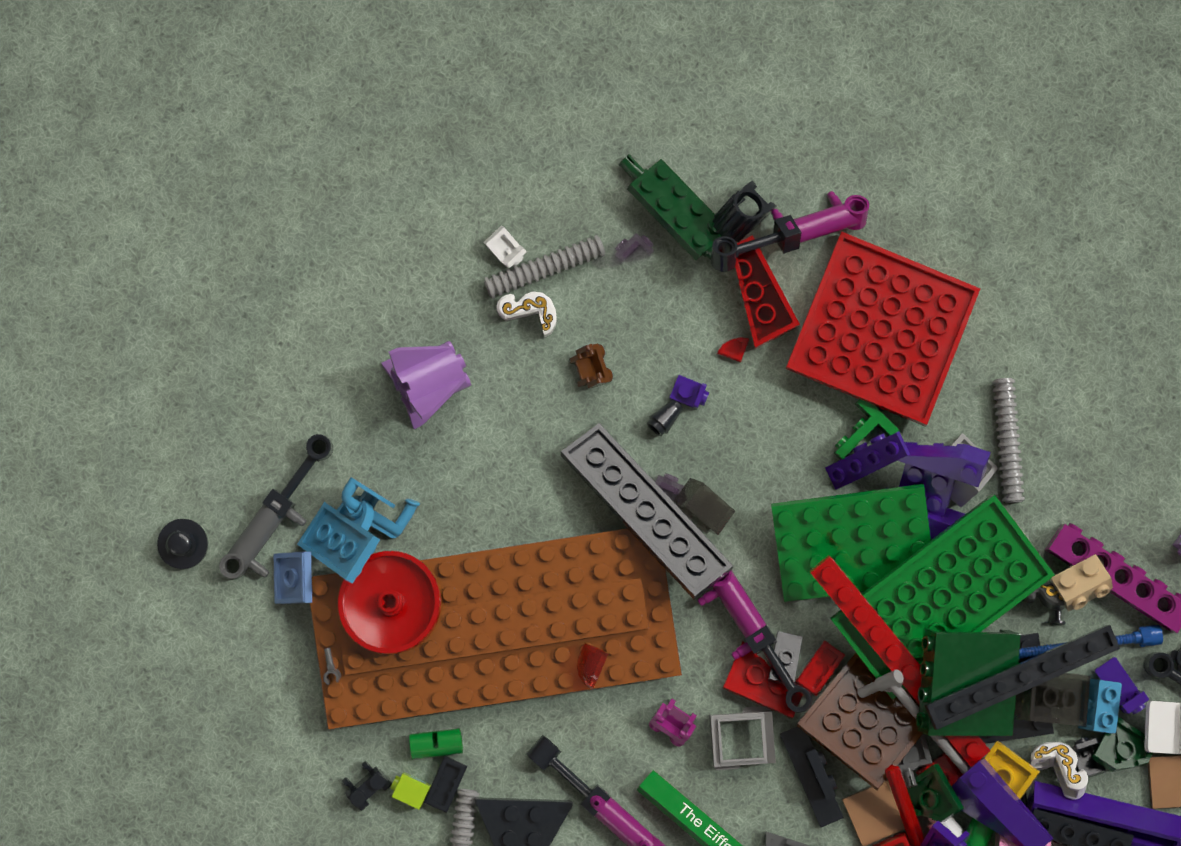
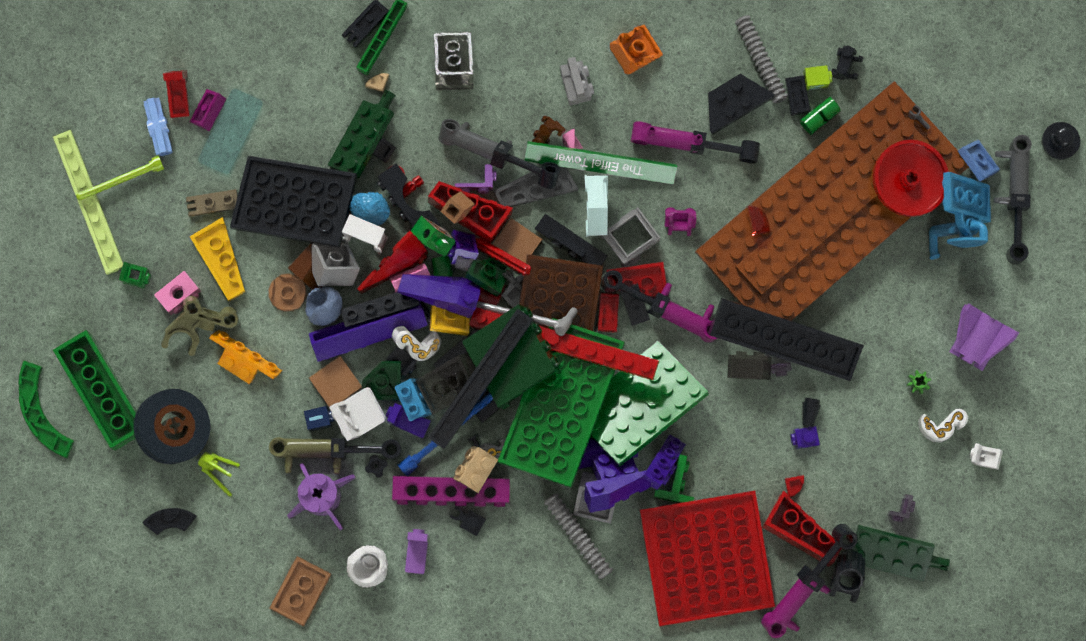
camera: 145 degrees right, 5 degrees down
(521, 380) = (913, 382): none -> bright green gear
(544, 266) = (952, 460): light grey piece -> none
(591, 366) = (879, 413): reddish brown piece -> none
(761, 798) = (596, 205): none -> light aqua piece
(1116, 530) = (471, 522): none -> black plate

